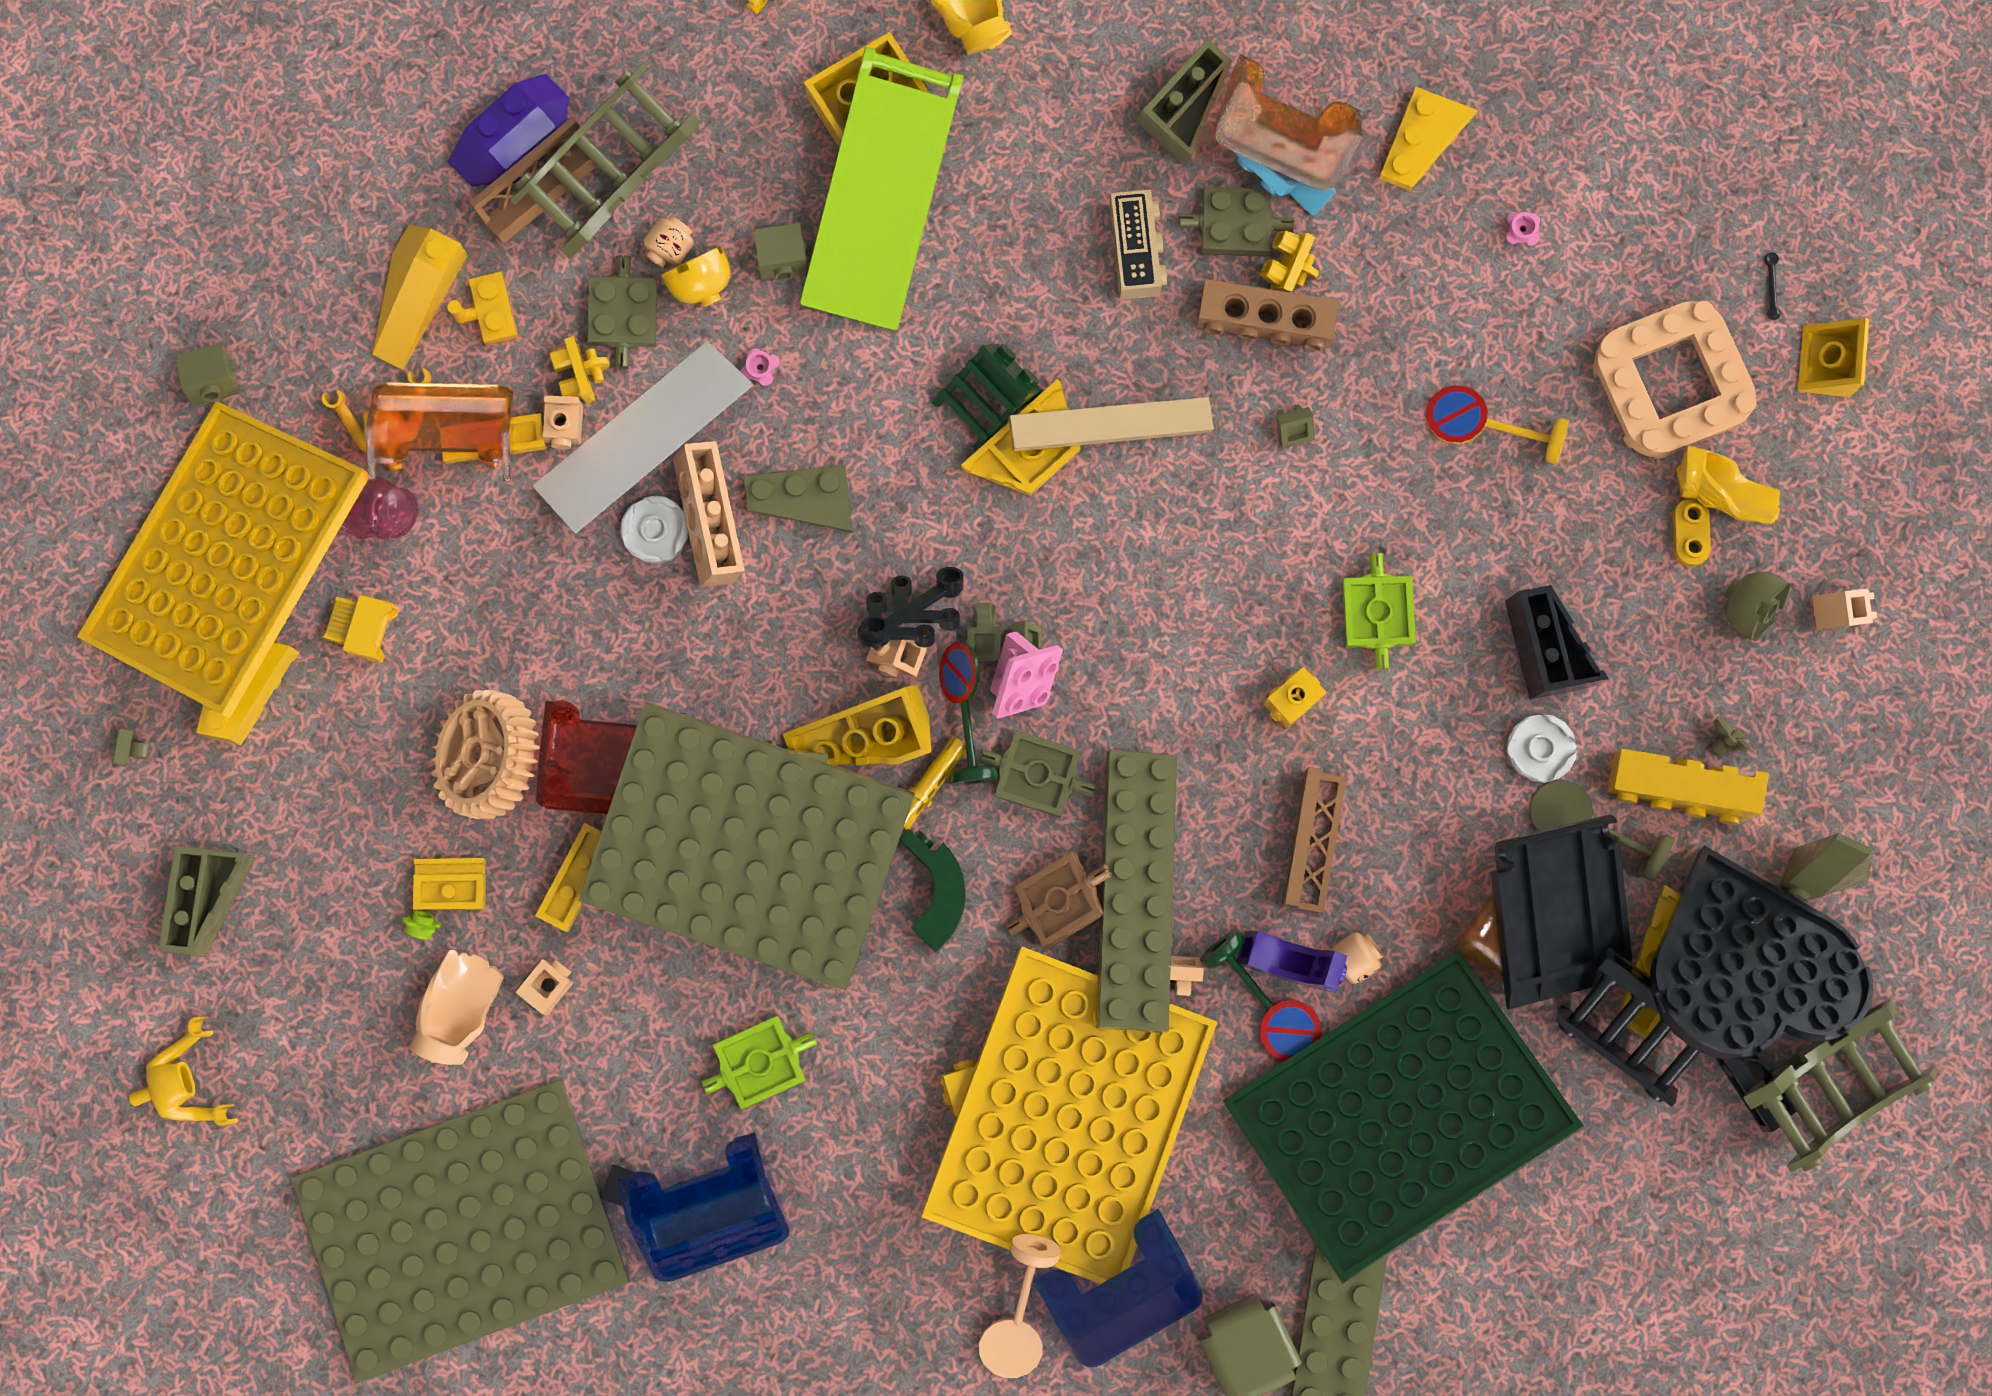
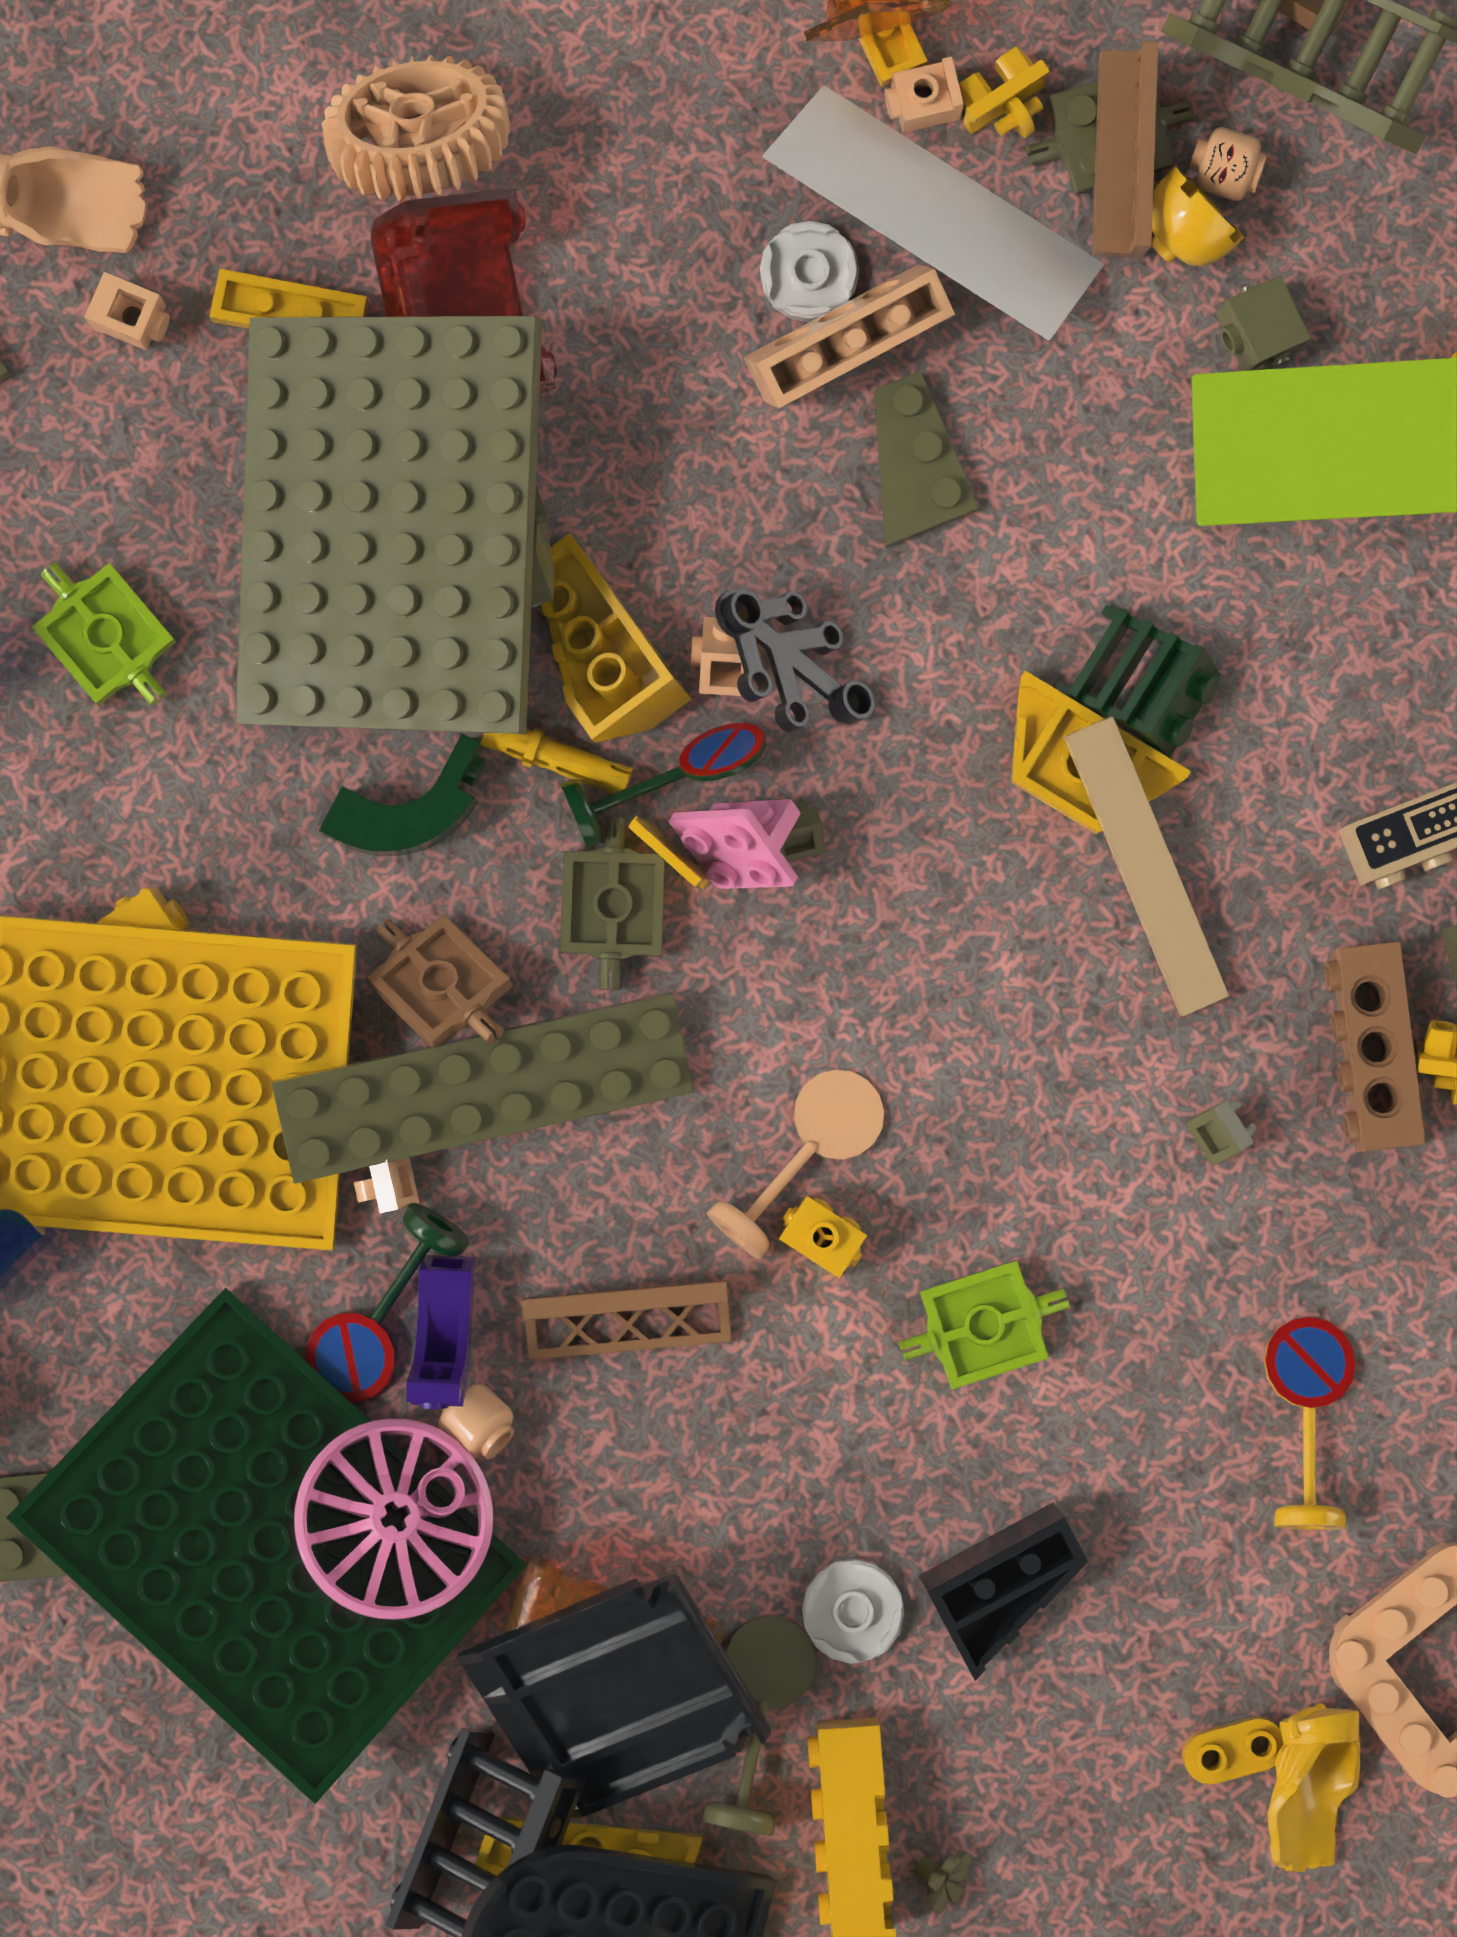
camera: 70 degrees right, 5 degrees up
(420, 924) = (165, 118): lime plate -> none
(449, 884) = (232, 140): yellow plate -> none
(642, 302) = (1125, 151): none -> medium nougat fence
(756, 358) = (1093, 335): bright pink plate -> none
(985, 638) = (782, 776): olive plate -> none
(1014, 726) = (669, 852): none -> yellow piece
(1218, 669) = (834, 1117): none -> light nougat piece
(1400, 973) = (414, 1505): none -> bright pink piece
(1754, 602) = (1153, 1868): olive cylinder -> none

